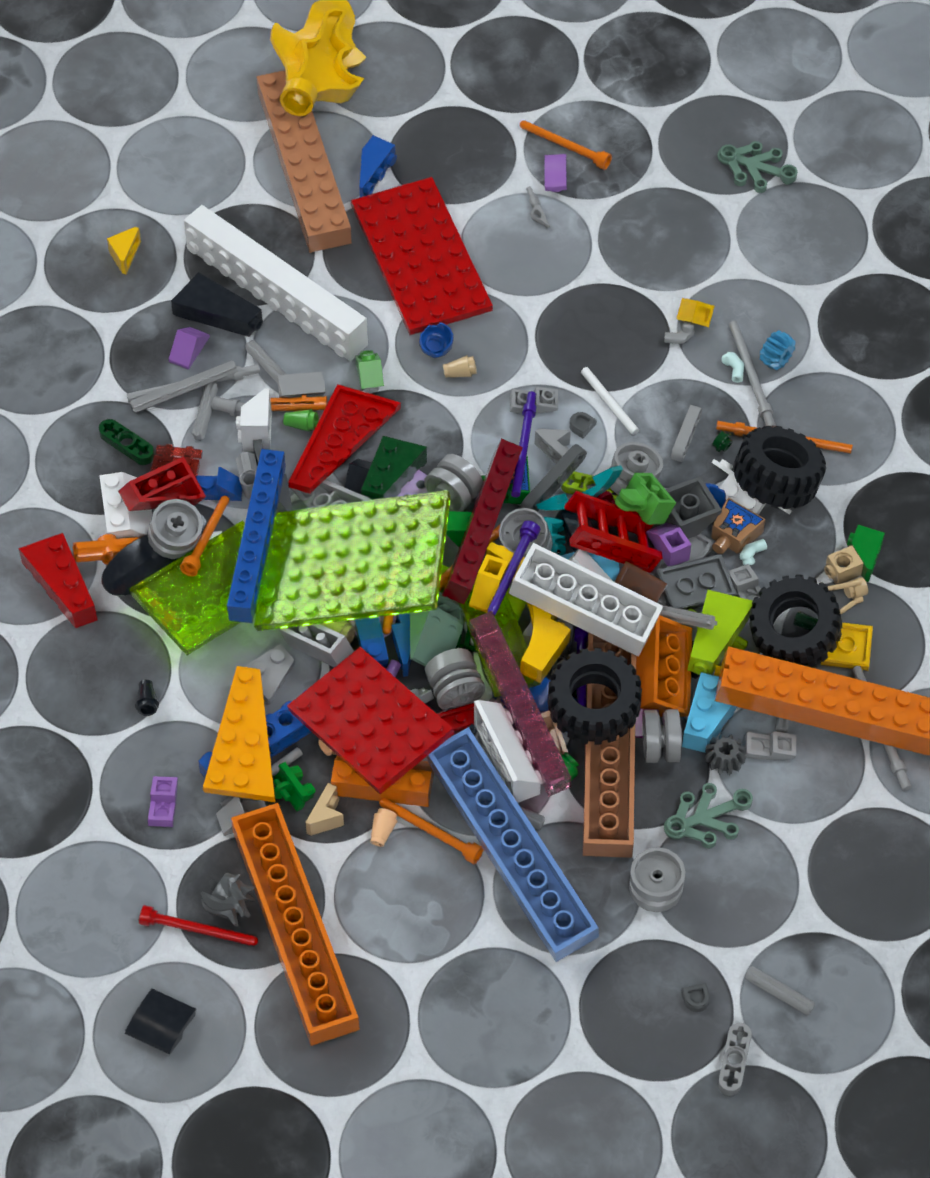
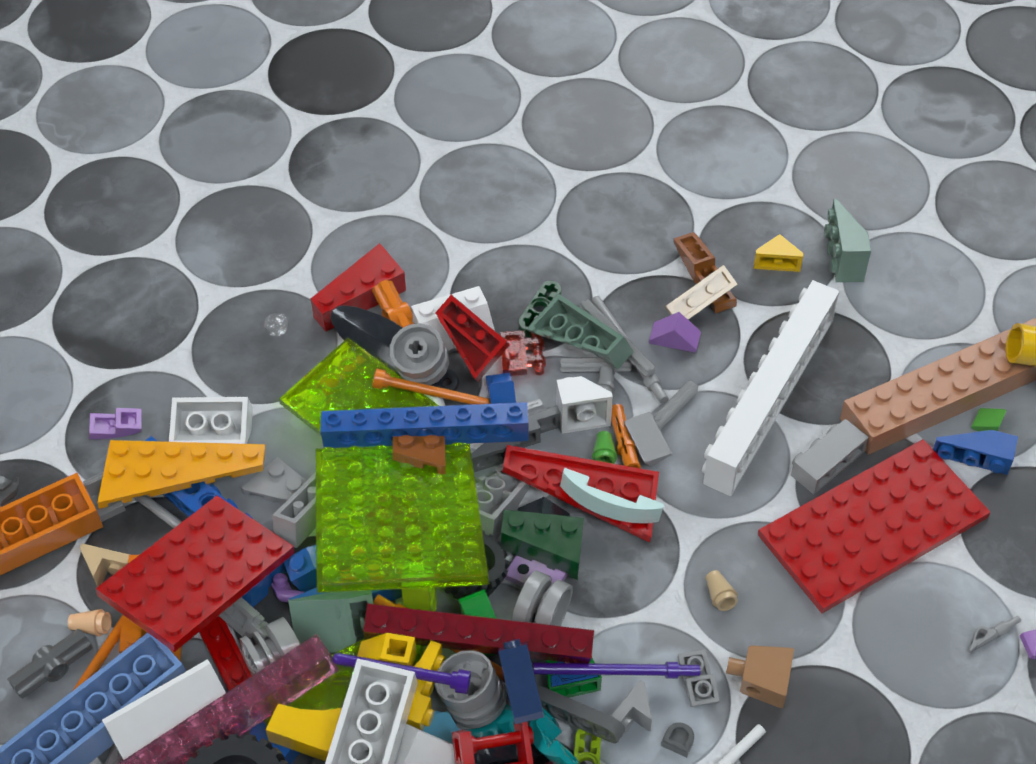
camera: 80 degrees right, 5 degrees down
(80, 662) = (276, 324): none -> clear plate
(123, 309) = (701, 264): none -> dark orange slope
(133, 193) = (847, 245): none -> sand green slope
(146, 699) = (232, 384): black cone -> none
(157, 312) = (702, 293): none -> tan plate
(170, 411) = (576, 327): none -> sand green wedge
(195, 713) = (211, 420): none -> white slope
(216, 306) = (731, 345): black slope -> none
(285, 539) = (420, 451): none -> dark orange wing
(289, 787) = (126, 535): green hips -> none
(344, 152) = (988, 419): none -> bright green slope
(351, 265) = (828, 456): none -> light grey brick
(352, 434) = (609, 505): none -> light aqua slope
(369, 369) = (688, 498): bright green slope -> none
(417, 858) = (50, 663): none -> dark grey piece
(436, 340) = (748, 557): blue hair -> none
(541, 492) = (520, 681): none -> dark blue slope
(542, 354) = (764, 673): none -> medium nougat torso

